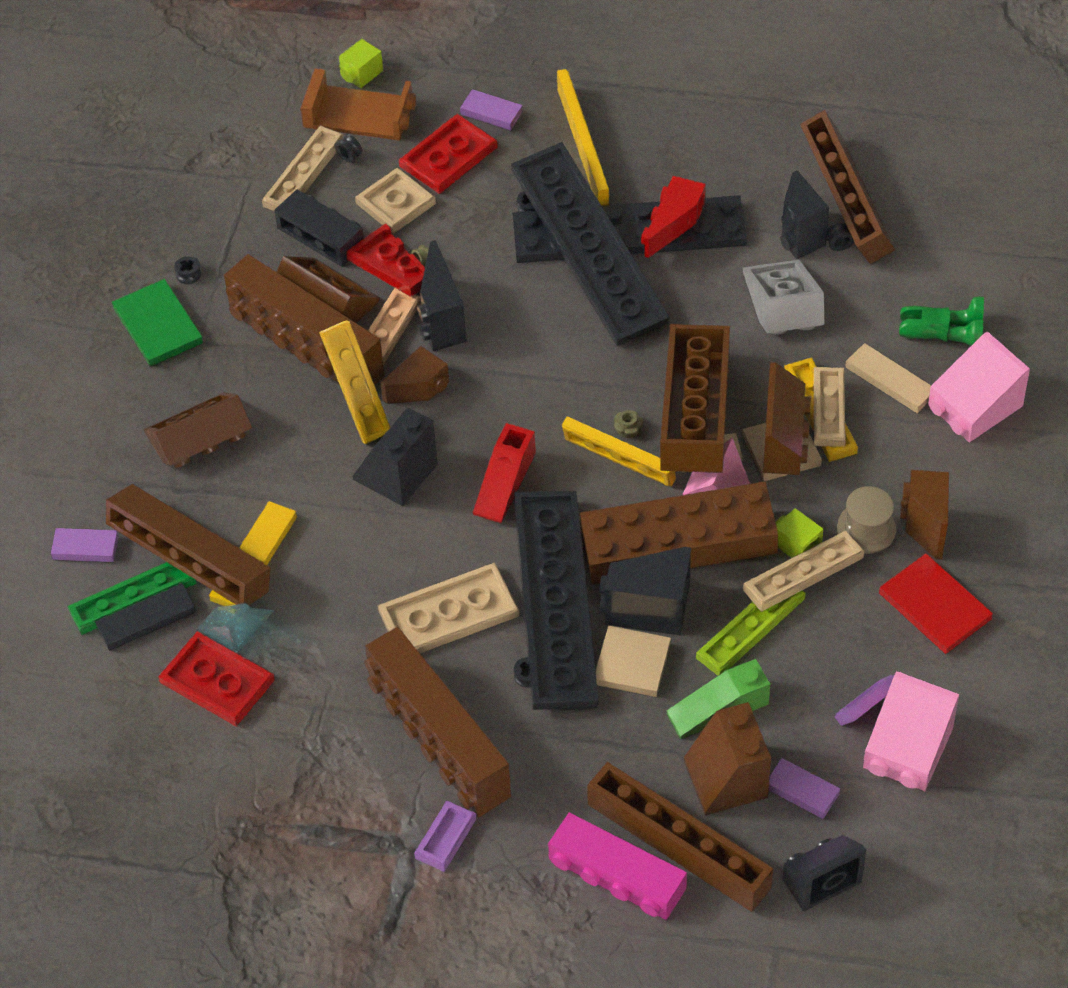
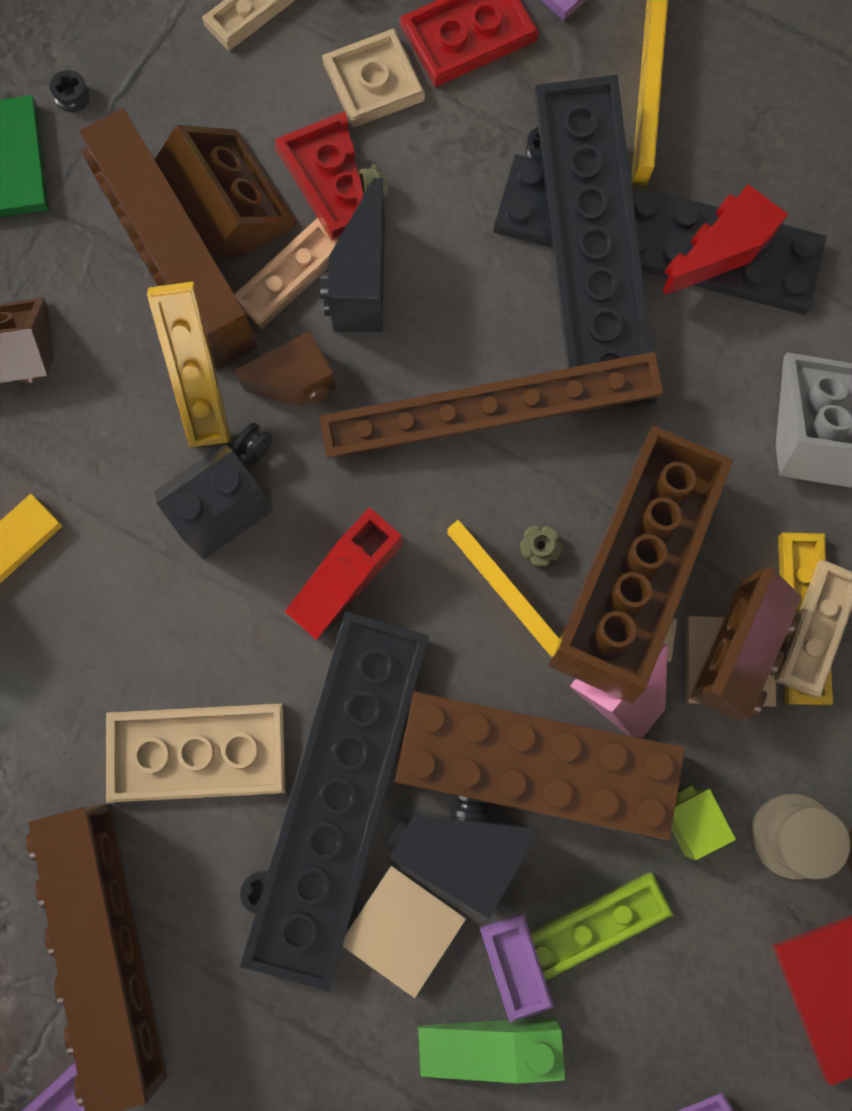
camera: 15 degrees right, 25 degrees up
(318, 226) = (256, 84): black brick -> none
(558, 352) = (491, 405): none -> reddish brown plate
(713, 646) = (516, 967): none -> medium lavender tile
(803, 570) = (683, 884): tan tile -> none

